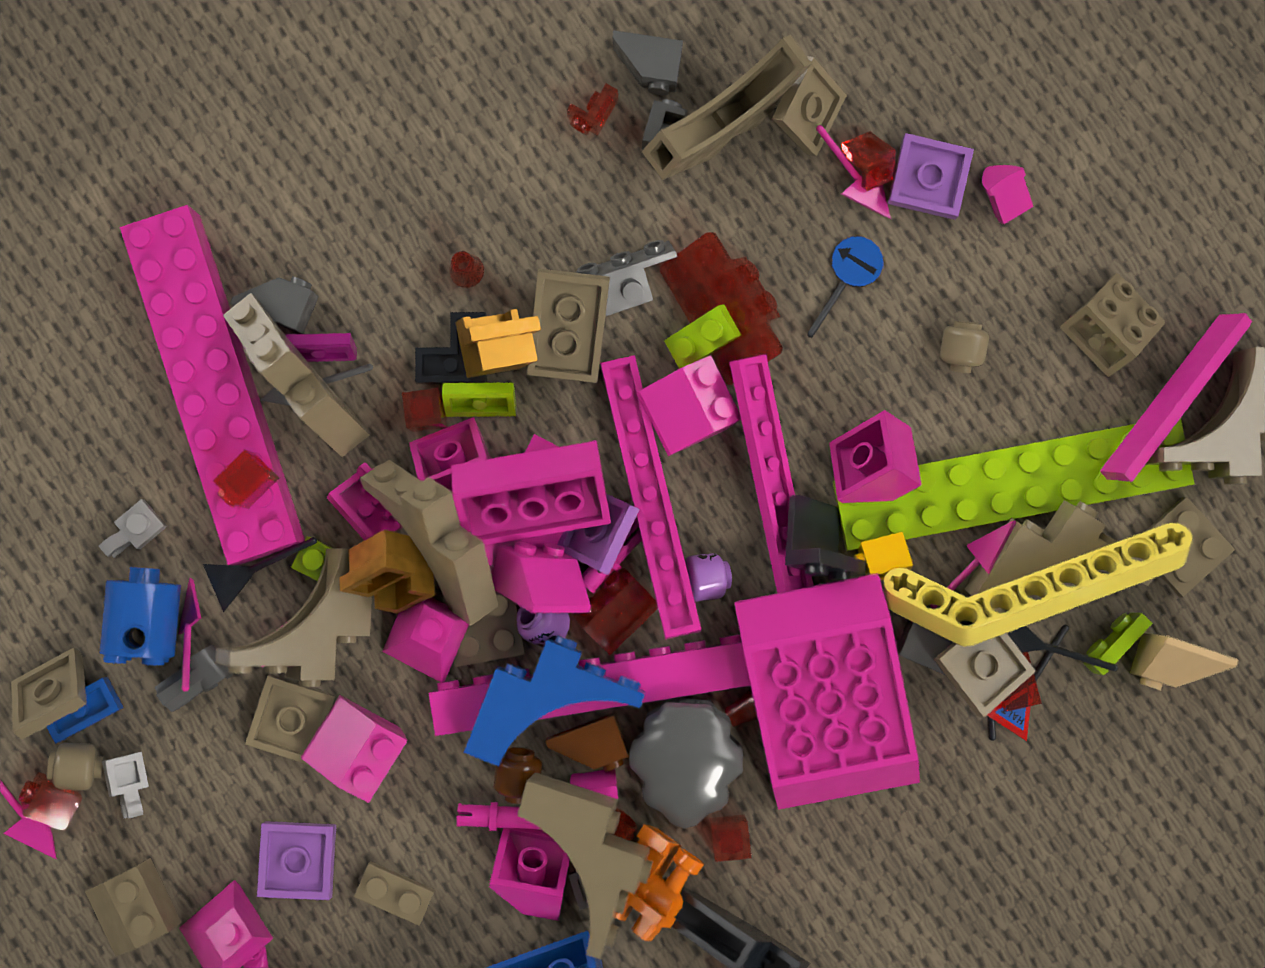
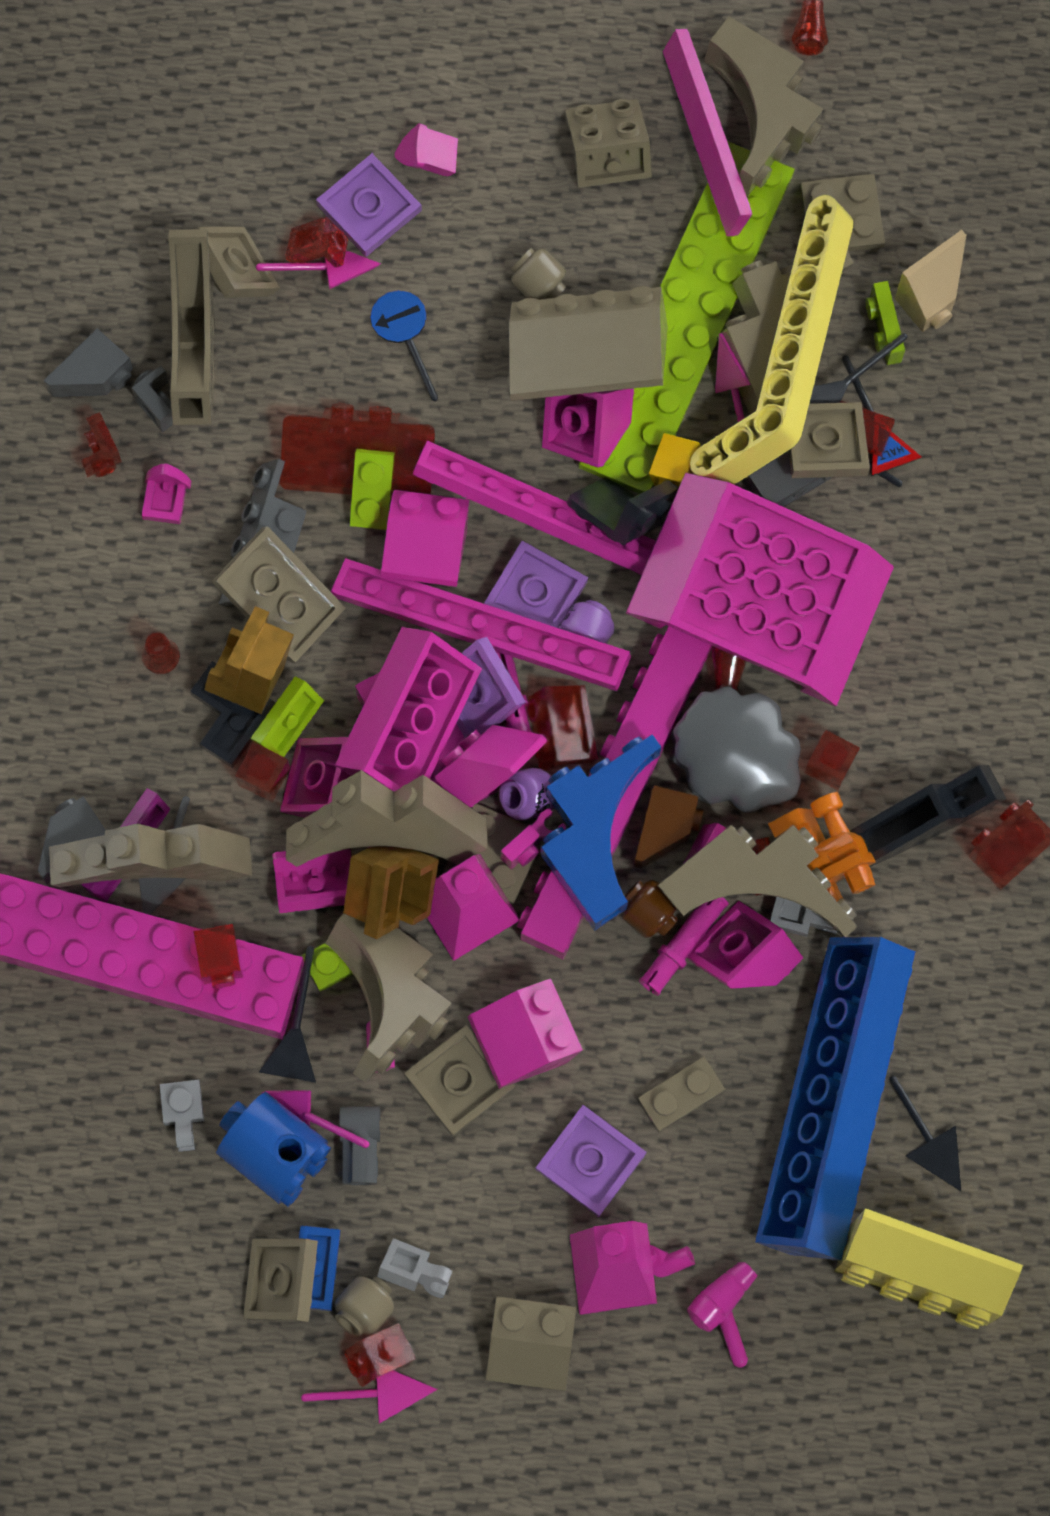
camera: 60 degrees left, 10 degrees down
(495, 650) = (524, 846): none -> dark pink plate
(592, 186) = (165, 494): none -> dark pink tile
(709, 517) = (537, 586): none -> medium lavender plate
(930, 425) = (587, 343): none -> dark tan slope

